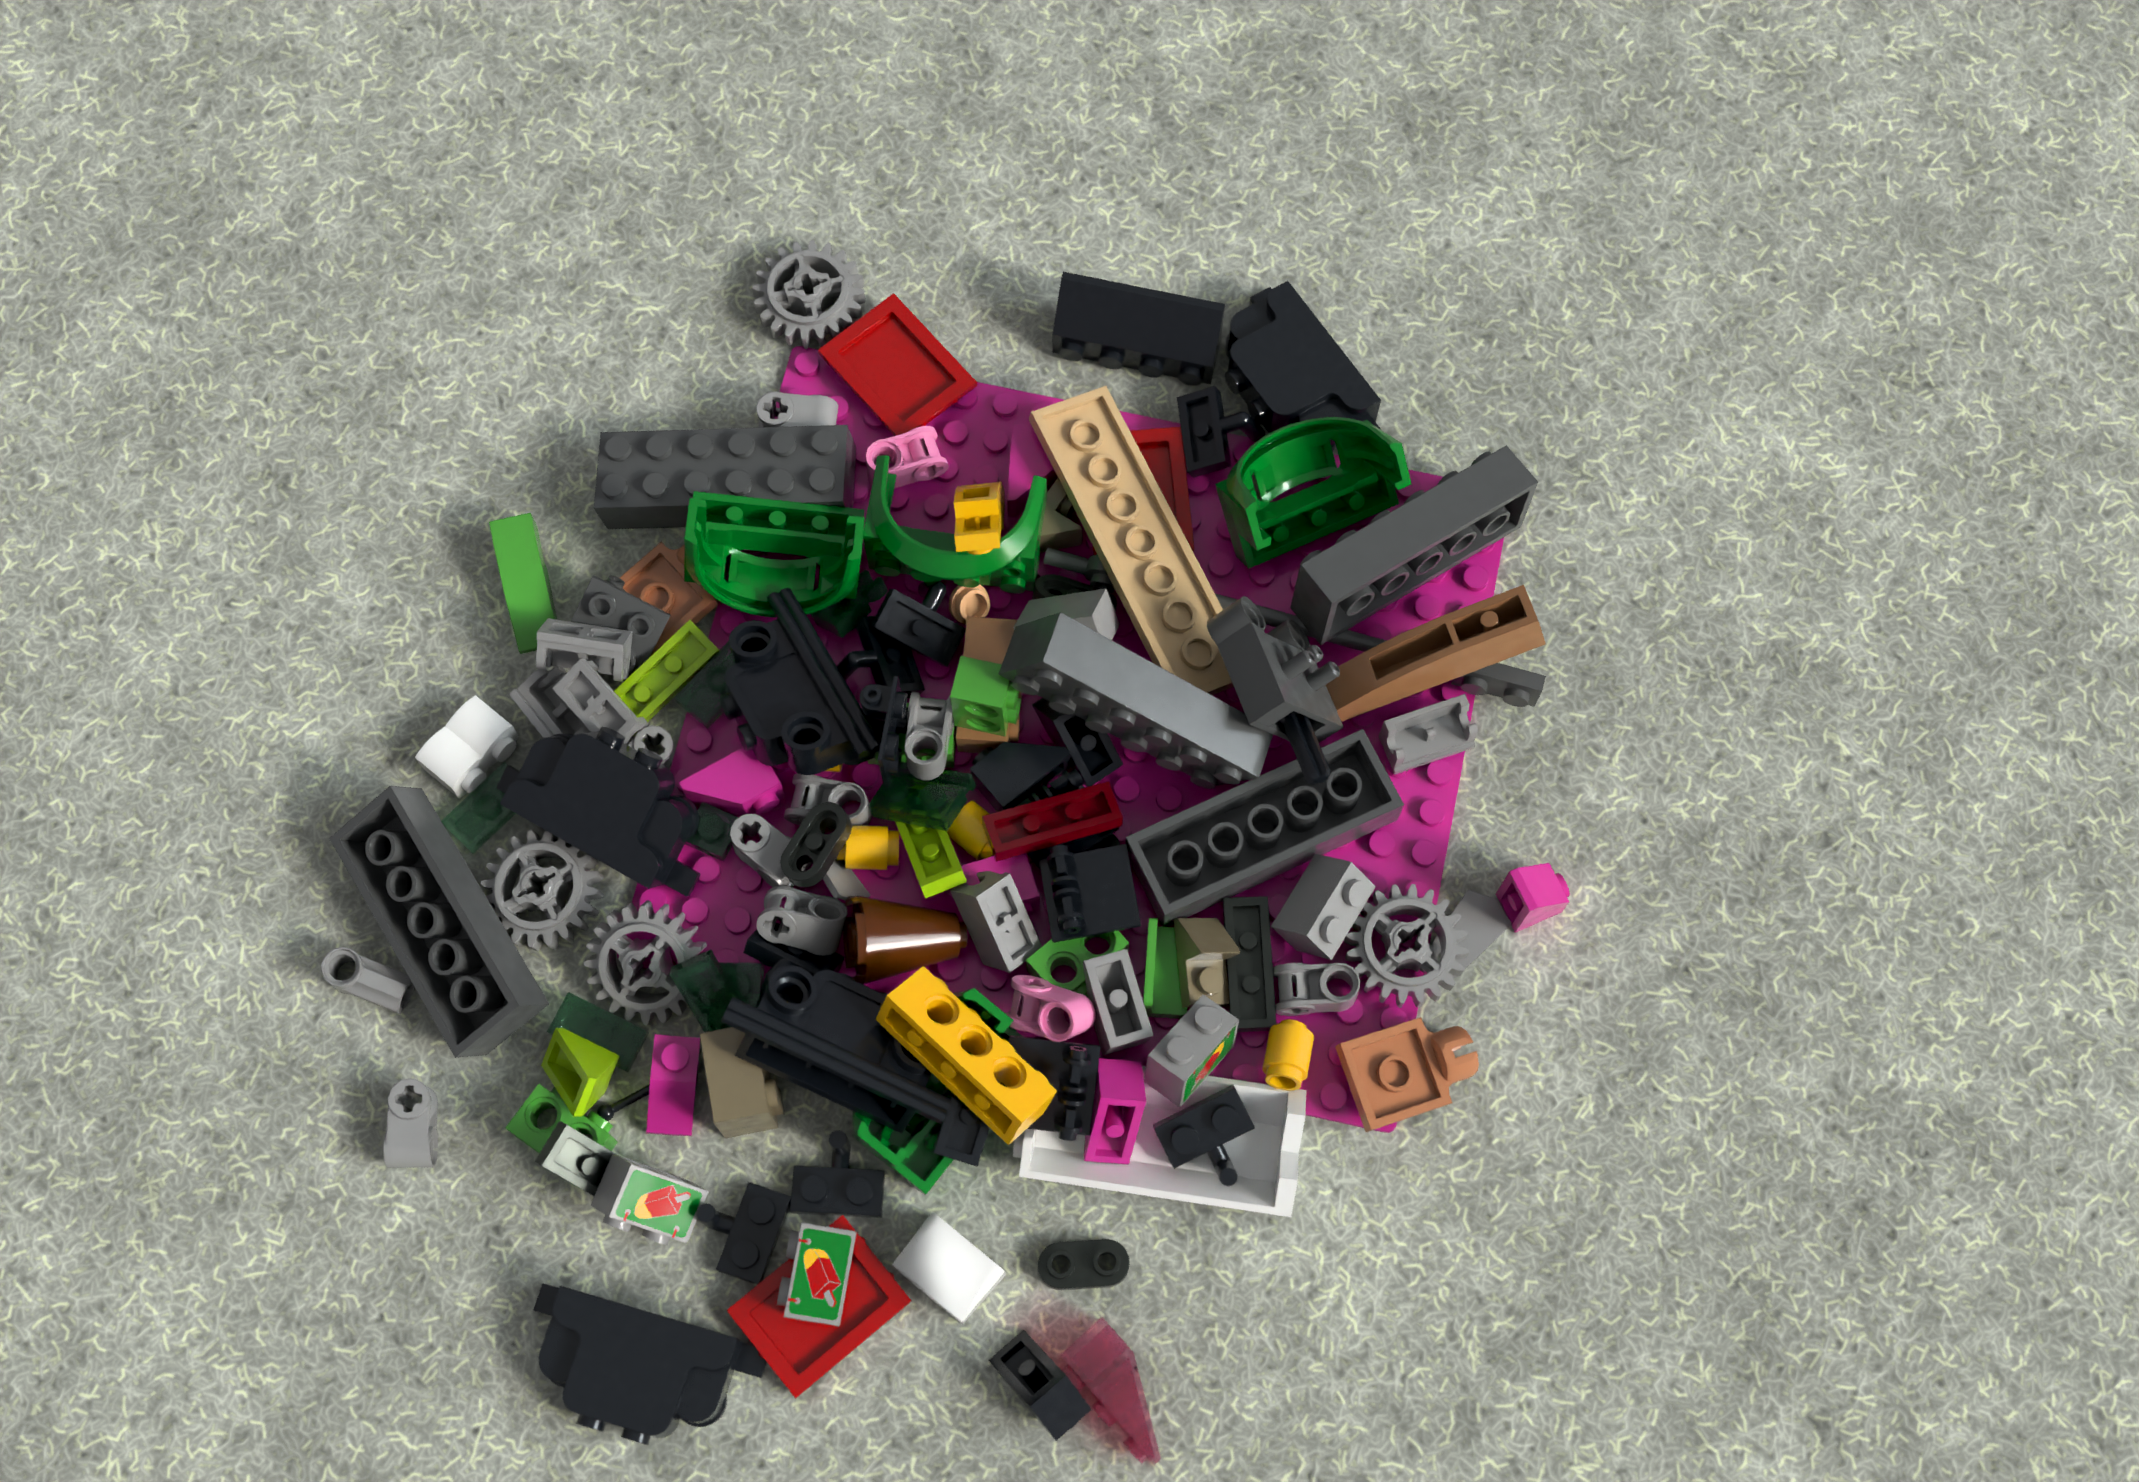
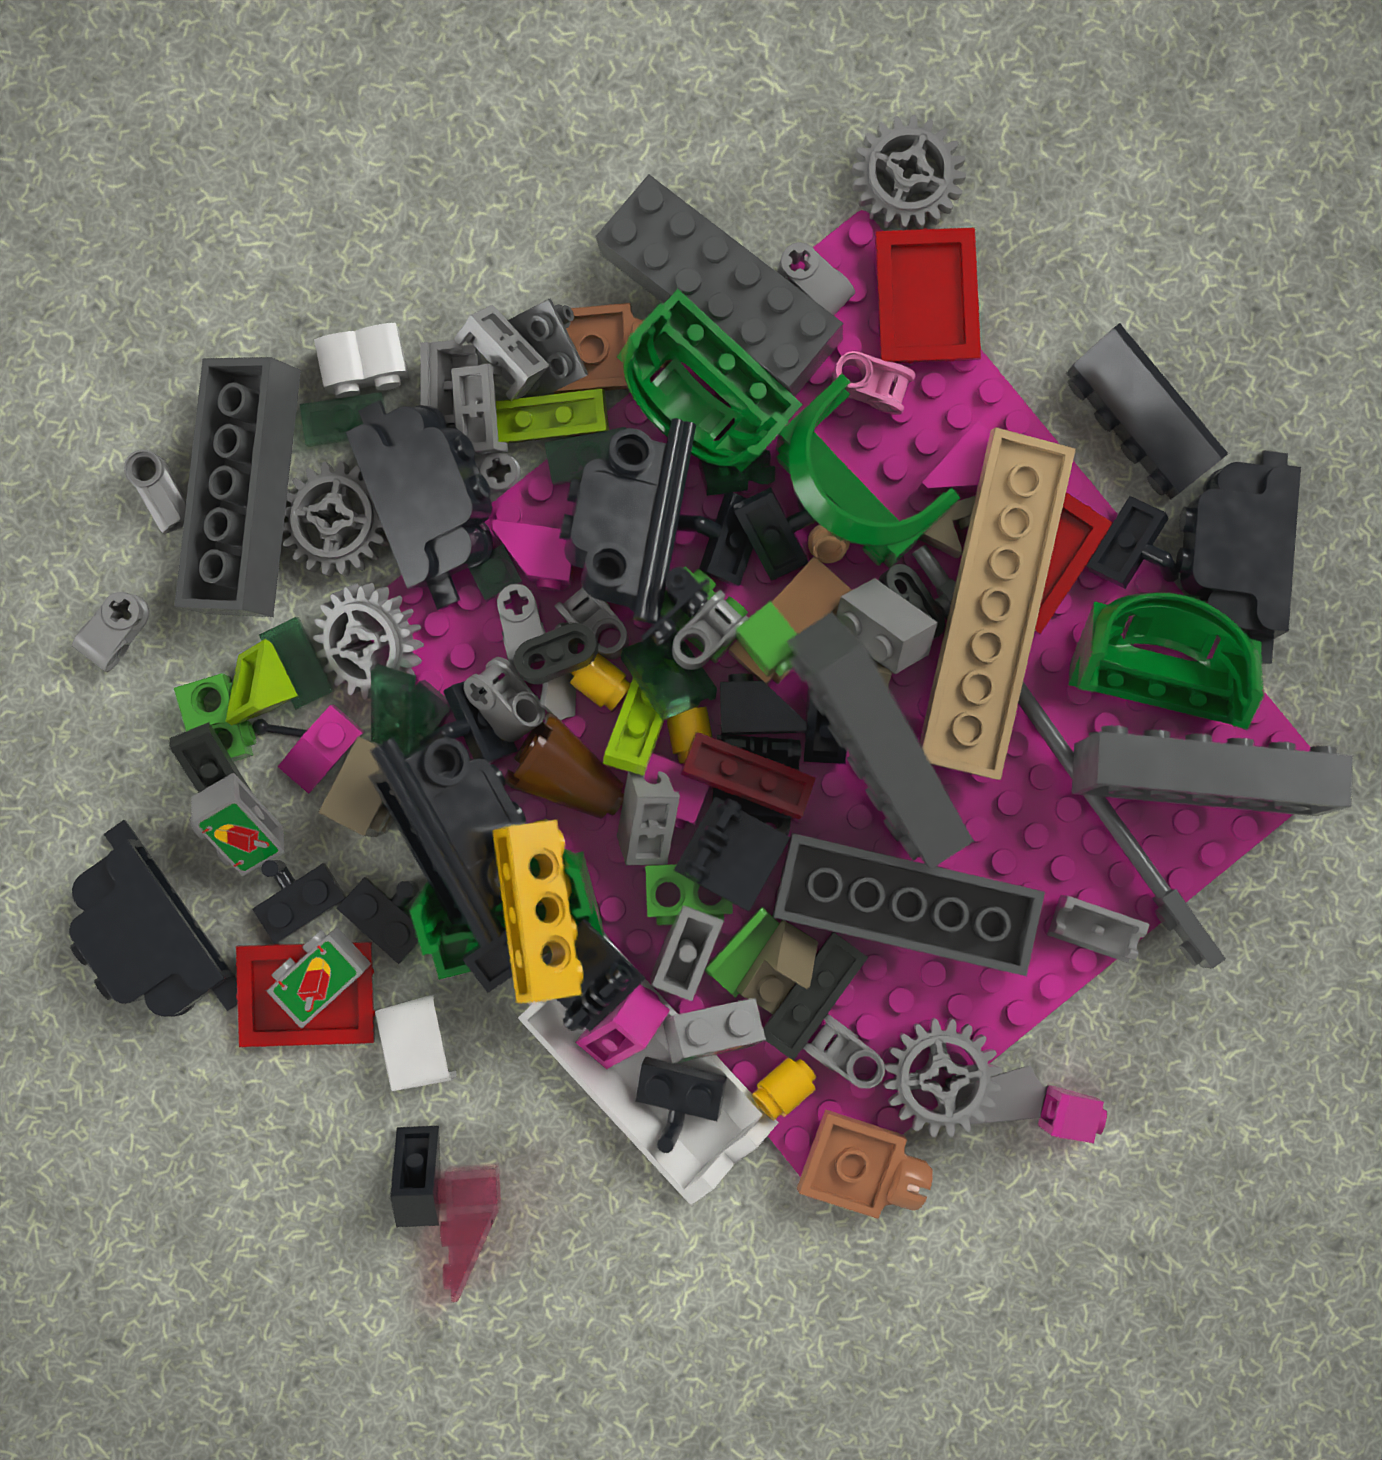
camera: 40 degrees right, 15 degrees up
(523, 577) = (503, 251): bright green slope -> none
(979, 517) = (882, 487): yellow slope -> none
(1041, 1005) = (630, 919): bright pink piece -> none
(1084, 1267) = (519, 1112): pearl dark grey plate -> none
(1279, 682) = (1008, 806): dark grey piece -> none
(1323, 906) = (903, 1000): light grey brick -> none
(1437, 653) = (1134, 872): medium nougat slope -> none

